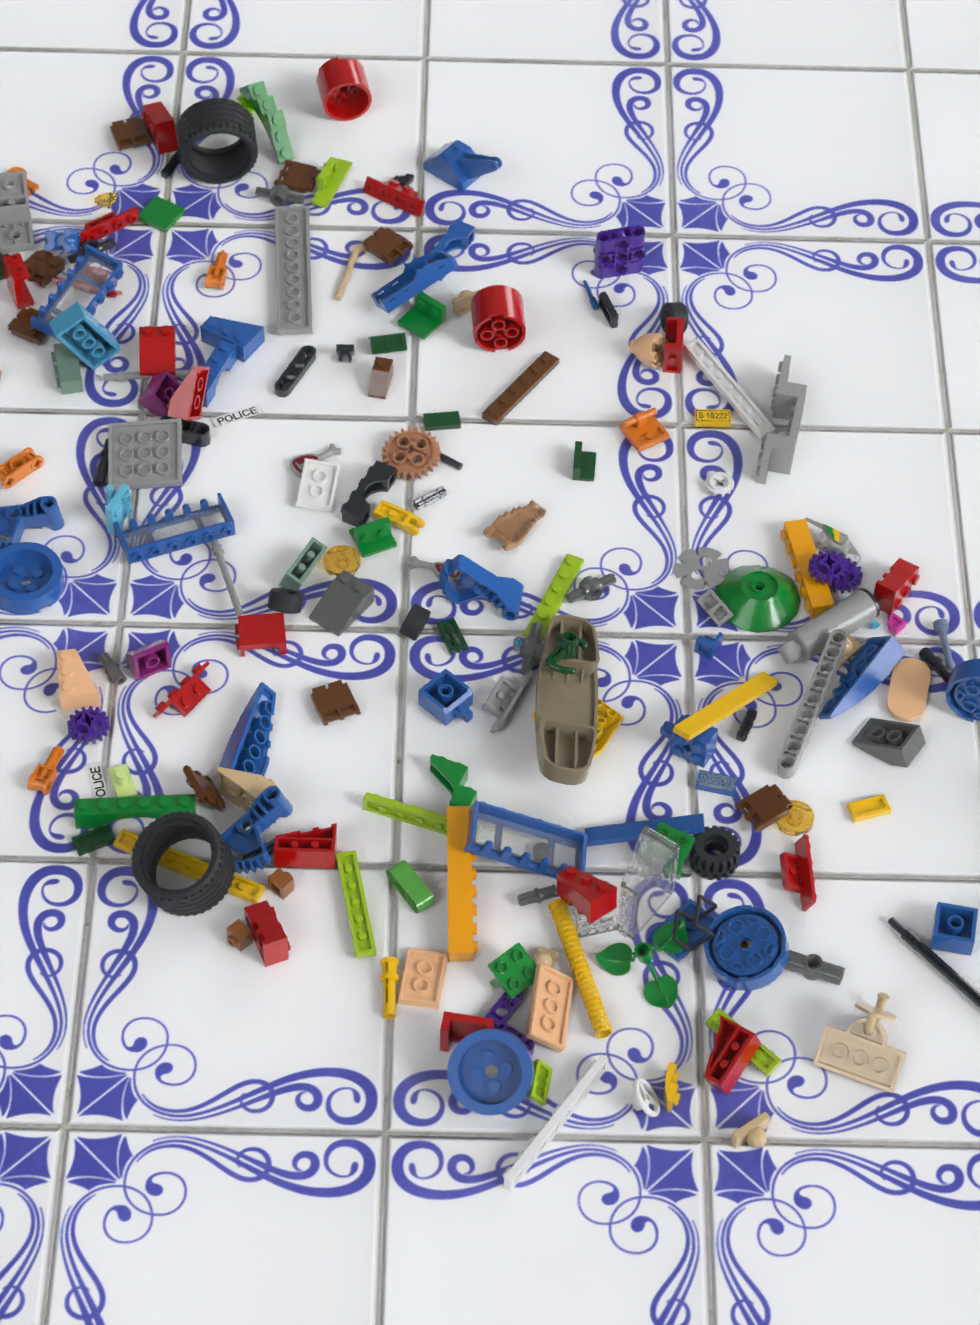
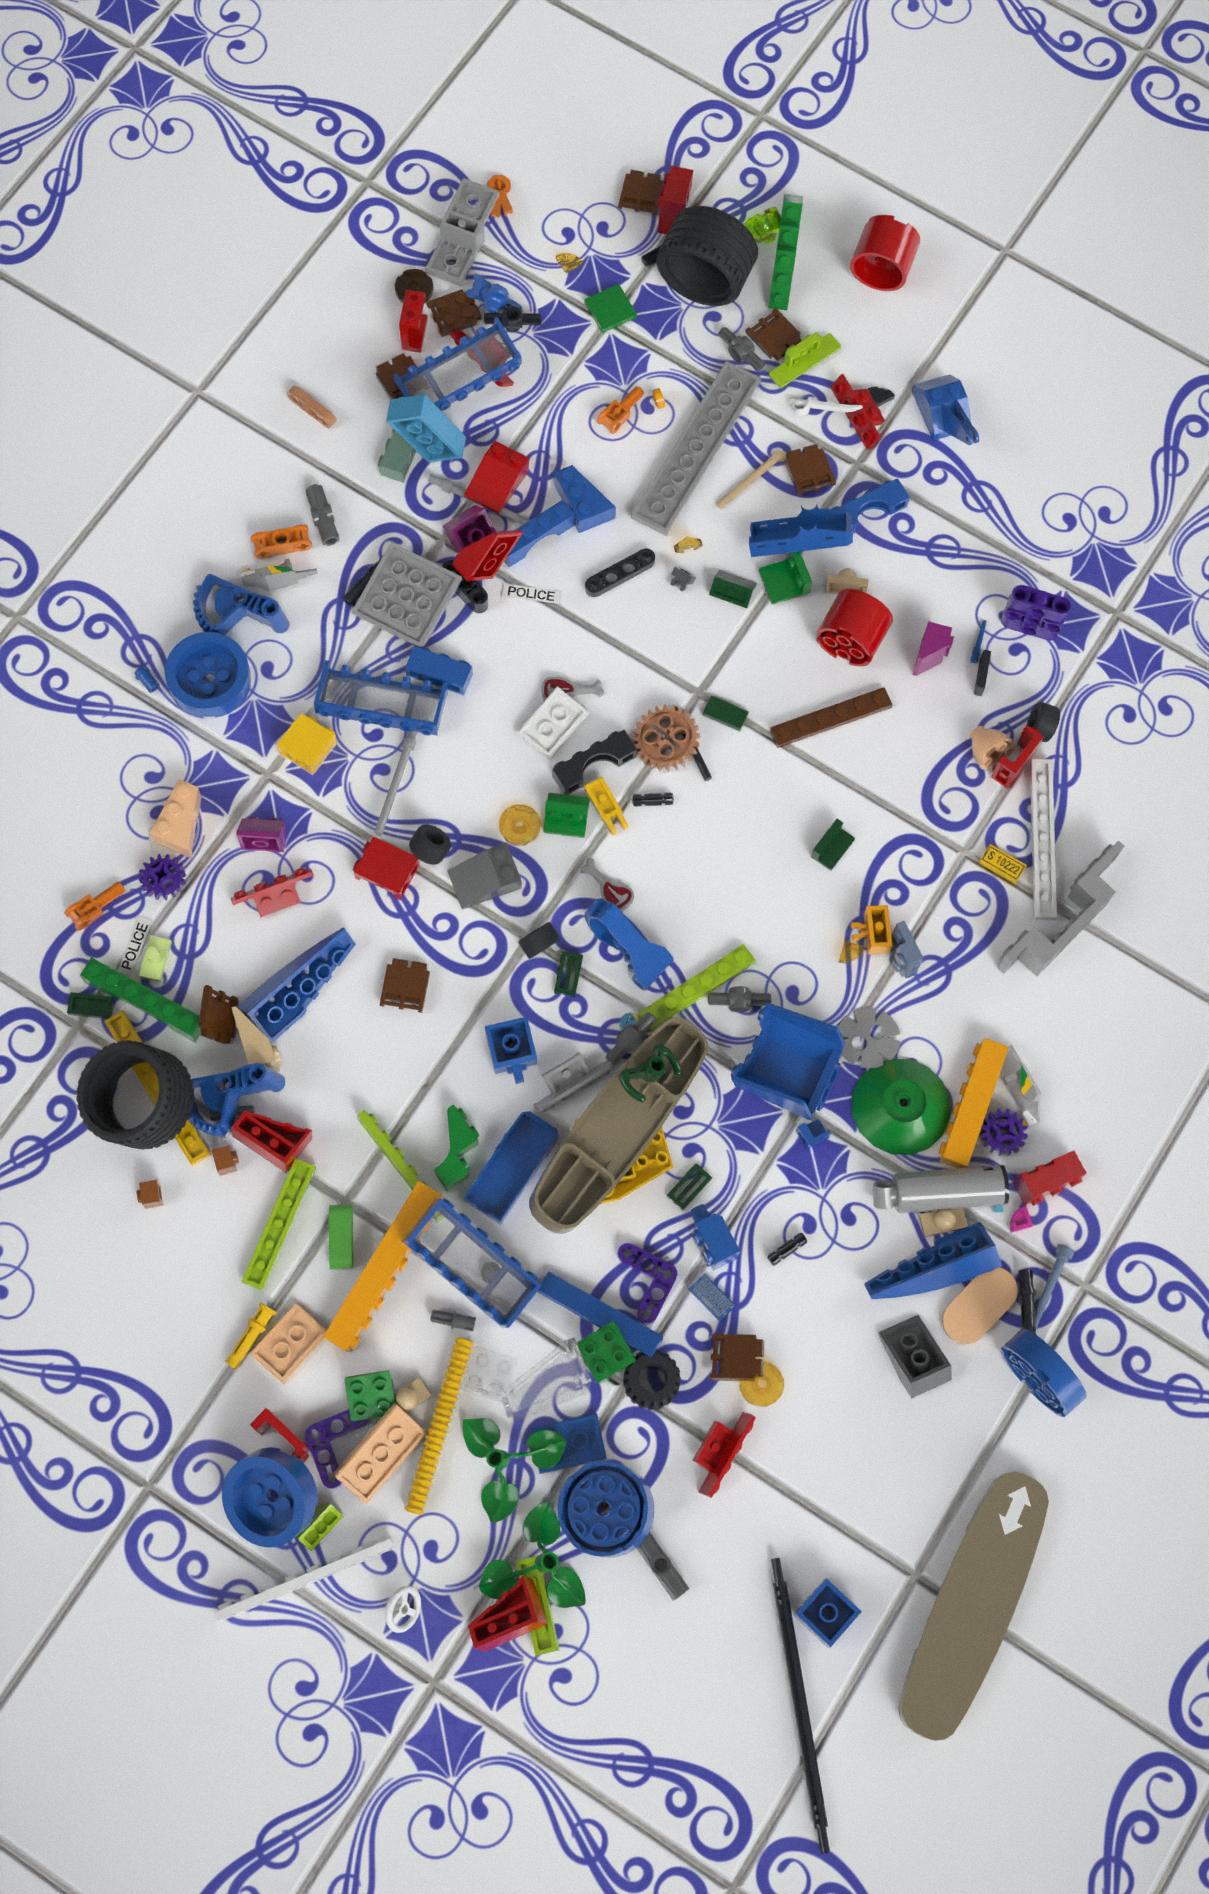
camera: 30 degrees right, 20 degrees up
(31, 489) = (275, 576): none -> light grey animal
(37, 437) = (322, 514): none -> dark grey piece
(108, 224) = (546, 295): red bracket -> none
(112, 668) = (225, 823): dark grey axle -> none
(117, 506) = (342, 645): medium azure plate -> none
(138, 585) = (307, 743): none -> yellow piece
(193, 491) = (439, 668): none -> blue brick
(241, 251) = (658, 398): none -> light orange tile
(267, 933) = (176, 1207): red wedge -> none
(303, 565) = (474, 812): sand green brick -> none
(332, 329) = (687, 543): none -> clear yellow tile
(351, 211) = (807, 404): none -> white sword
(380, 377) = (696, 629): slope -> none
(506, 771) = (512, 1166): none -> blue piece
(514, 526) = (712, 881): medium nougat animal -> none
(561, 307) = (934, 646): none -> magenta slope
(586, 893) = (488, 1358): red wedge -> none
(643, 735) = (677, 1201): none -> dark green tile
(644, 430) = (919, 842): orange plate -> none
(647, 522) = (850, 952): none -> clear yellow tile
(656, 496) = (876, 930): none -> light orange brick
(658, 598) = (791, 1061): none -> blue windscreen
(669, 791) = (658, 1280): none -> dark purple beam
(671, 1094) = (430, 1618): yellow slope -> none
(687, 496) = (907, 954): none -> sand blue plate
(697, 917) = (582, 1440): black piece -> none
(707, 992) = (544, 1528): none -> green plant
(714, 607) = (847, 1095): light grey slope -> none
(719, 478) = (960, 941): white gear -> none
(725, 706) = (769, 1225): yellow tile -> none
(752, 1132) = (478, 1714): tan tile -> none
(809, 710) = (870, 1260): light grey beam -> none
(828, 567) = (980, 1119): dark purple gear -> none
(859, 1052) = (641, 1698): tan plate -> none
(868, 808) = (843, 1418): yellow tile -> none

